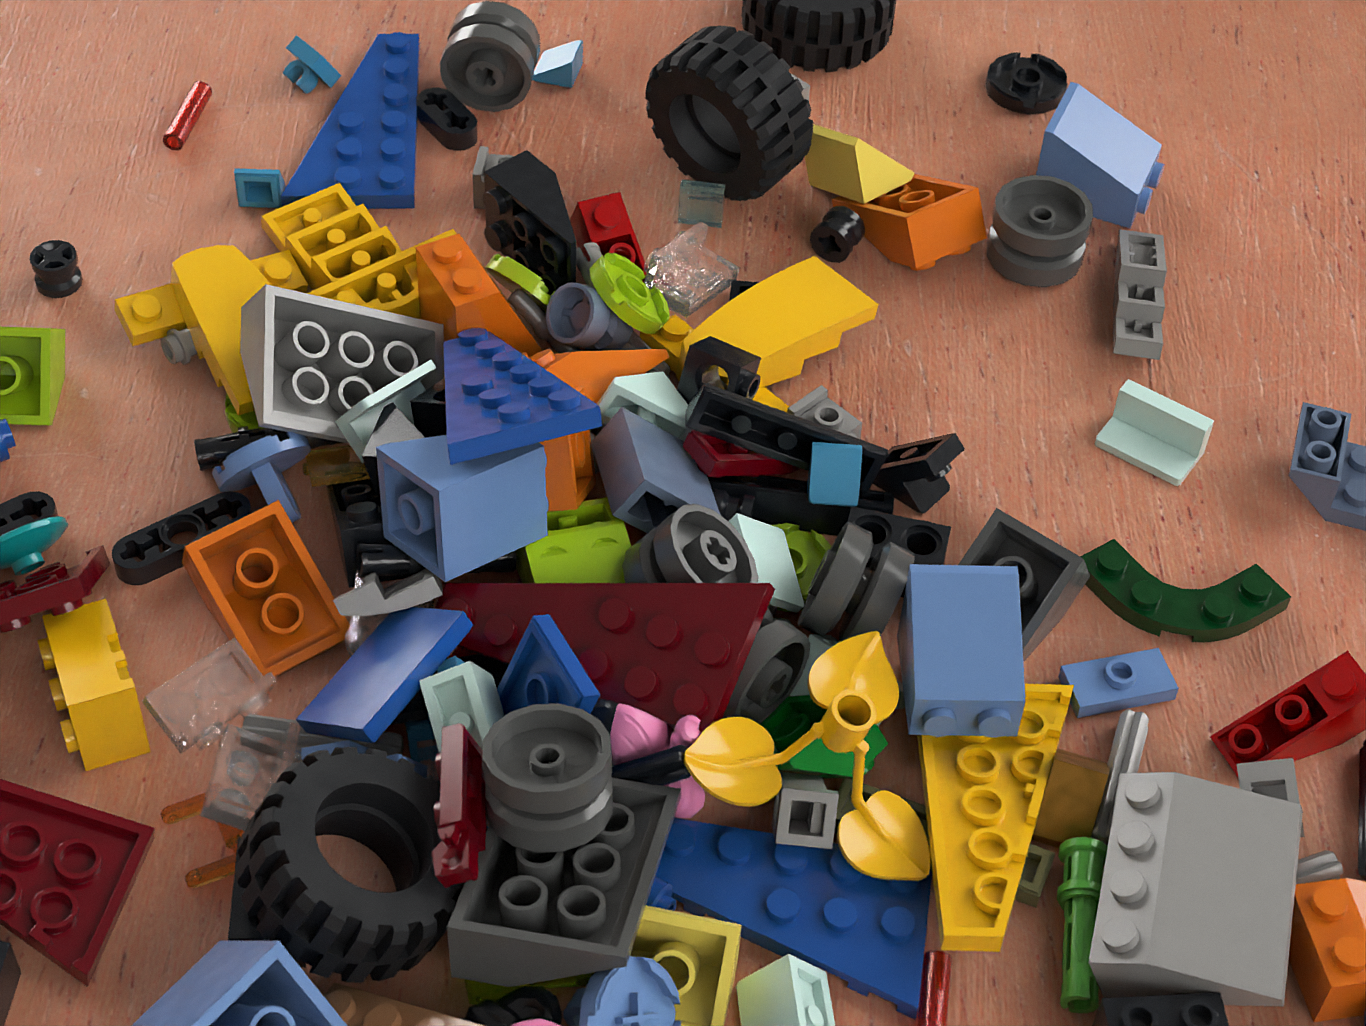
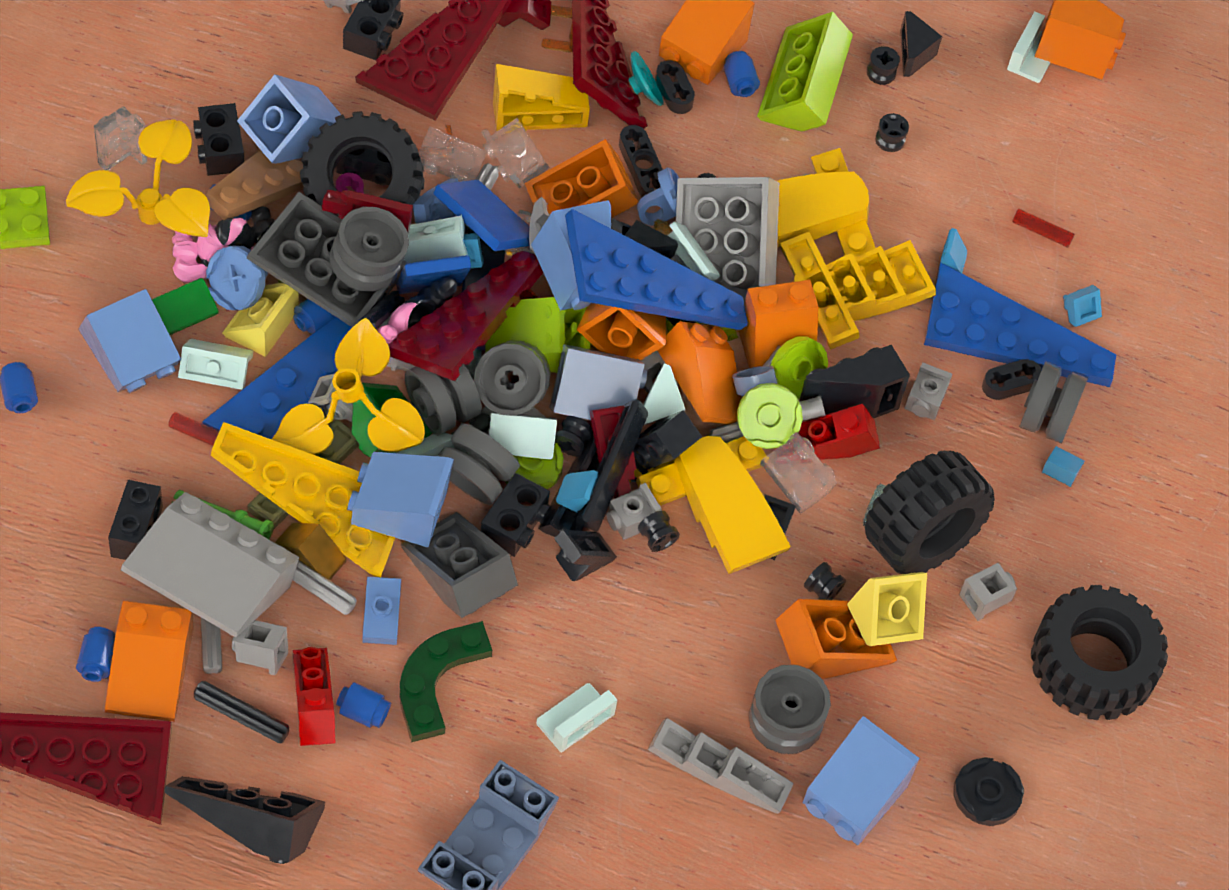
camera: 100 degrees right, 10 degrees up
(849, 392) = (658, 531): none -> black wheel
(1282, 655) = (363, 705): none -> blue brick

